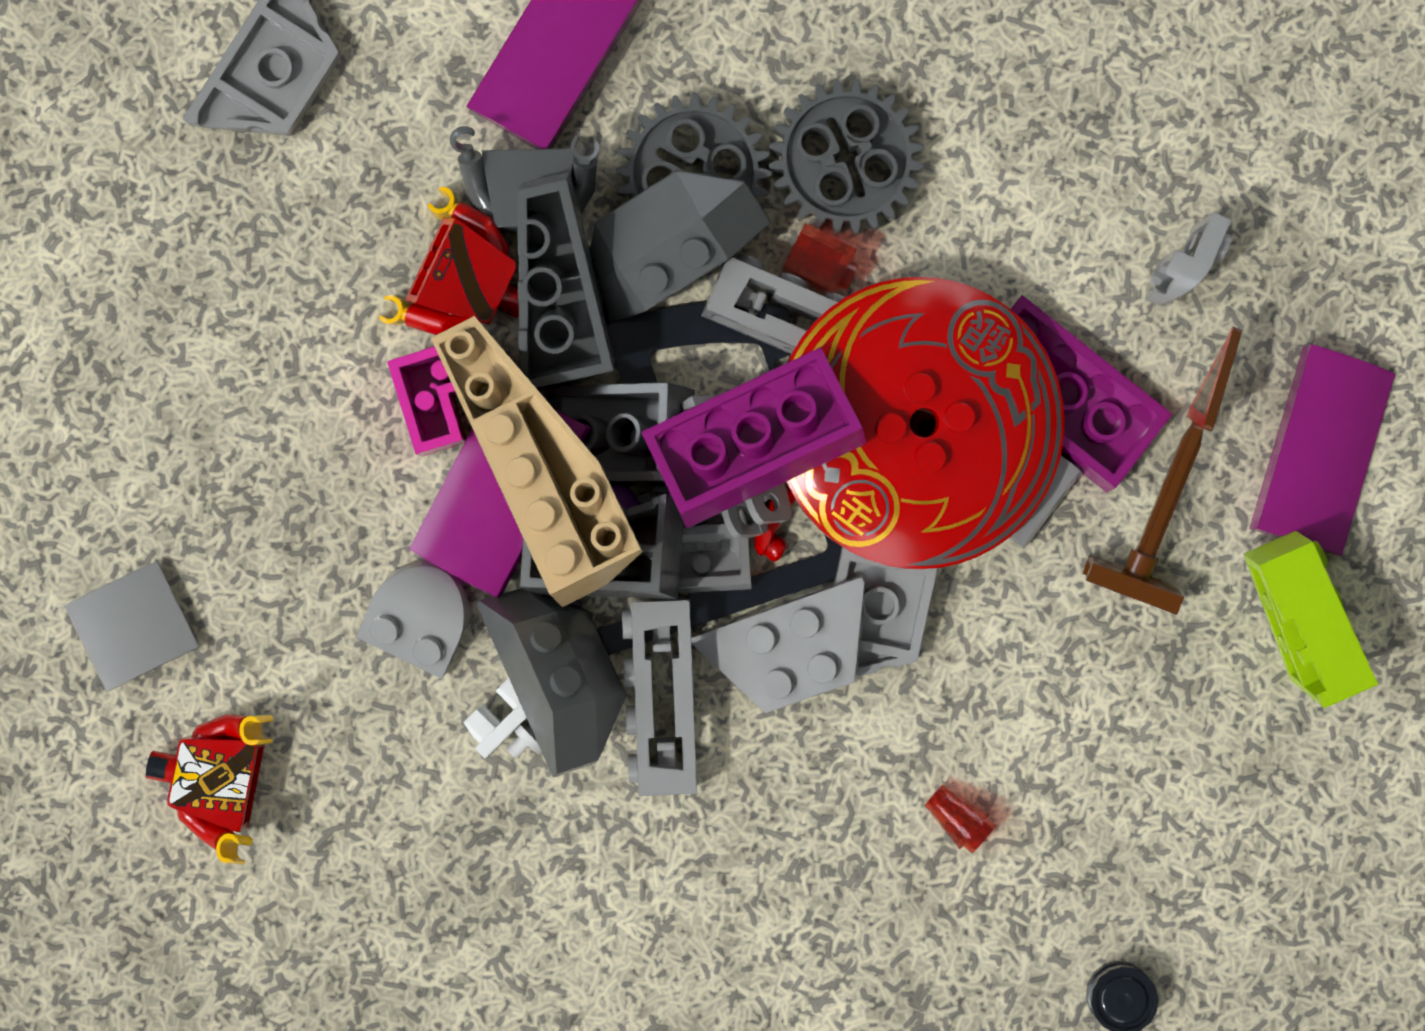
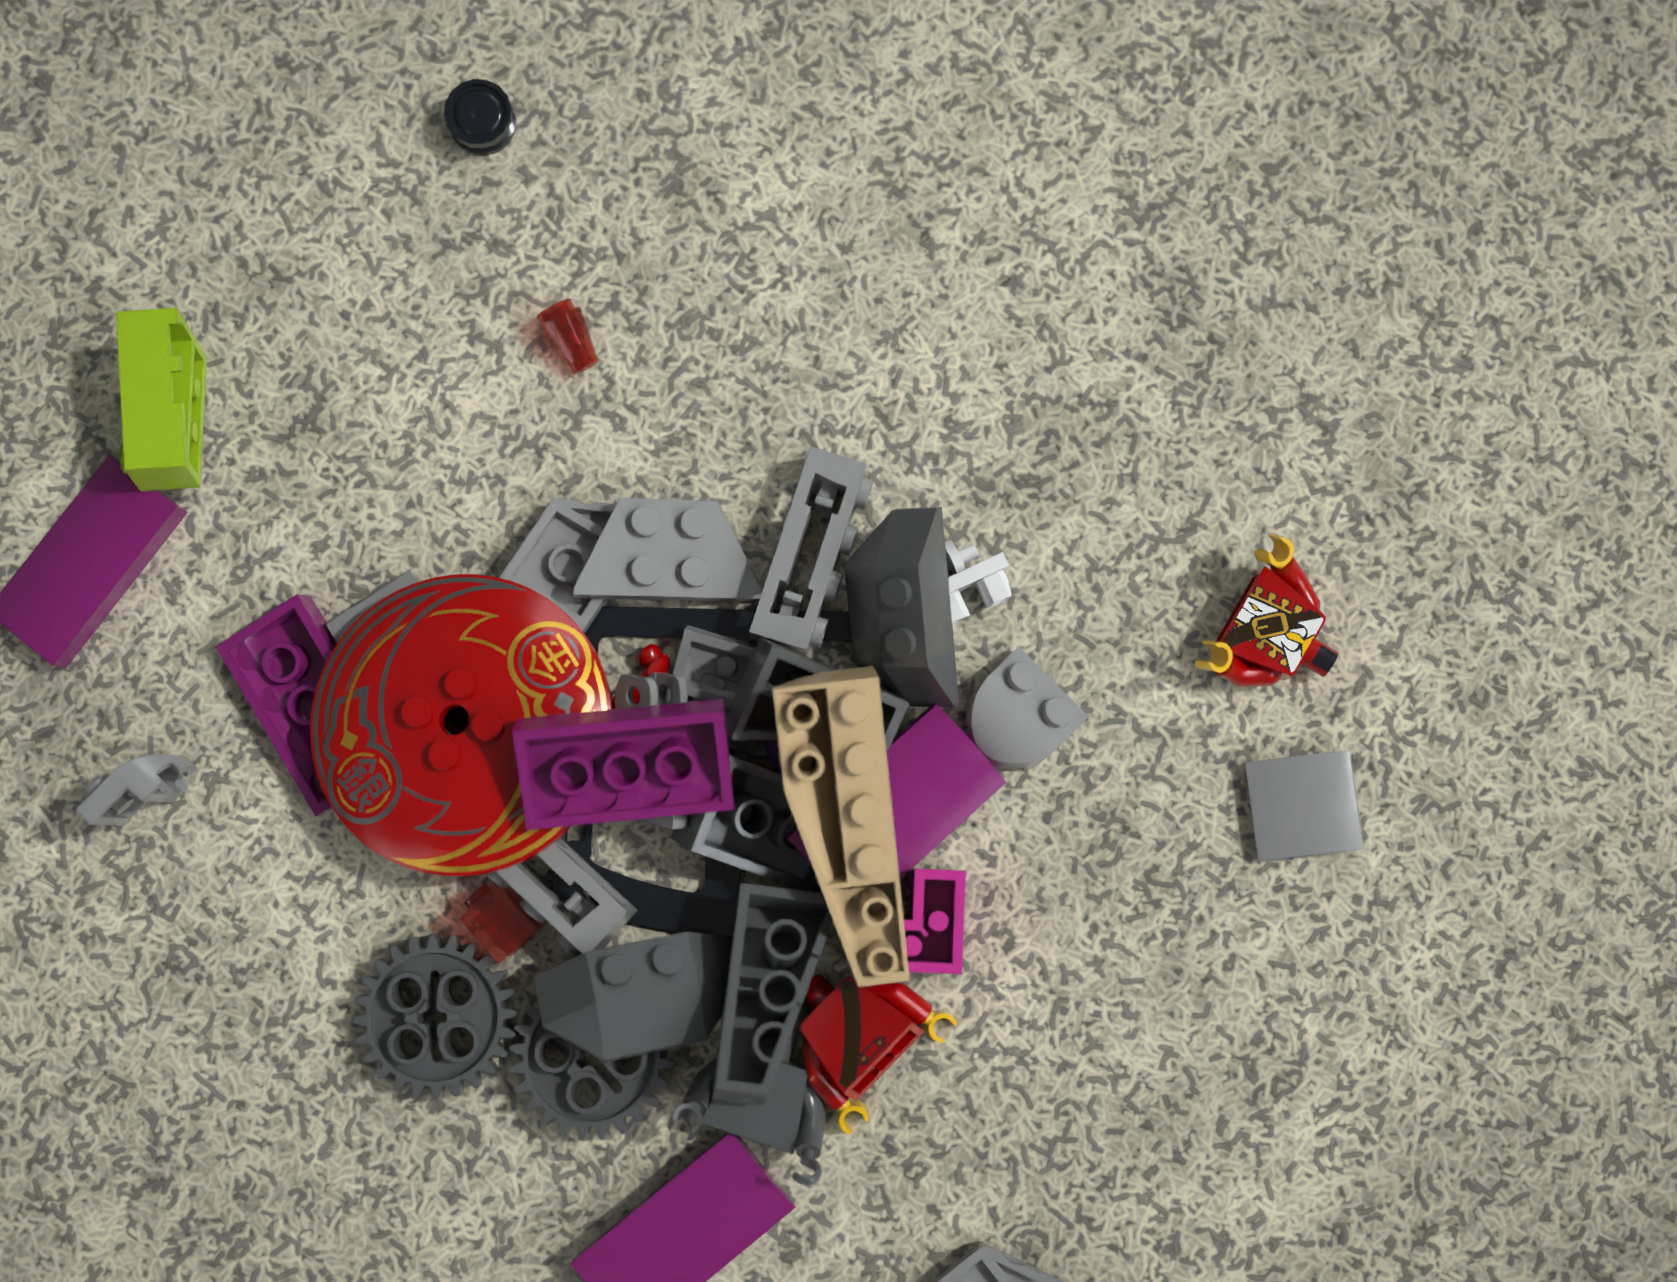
camera: 160 degrees left, 5 degrees down
(1136, 576) = (179, 635): reddish brown piece -> none

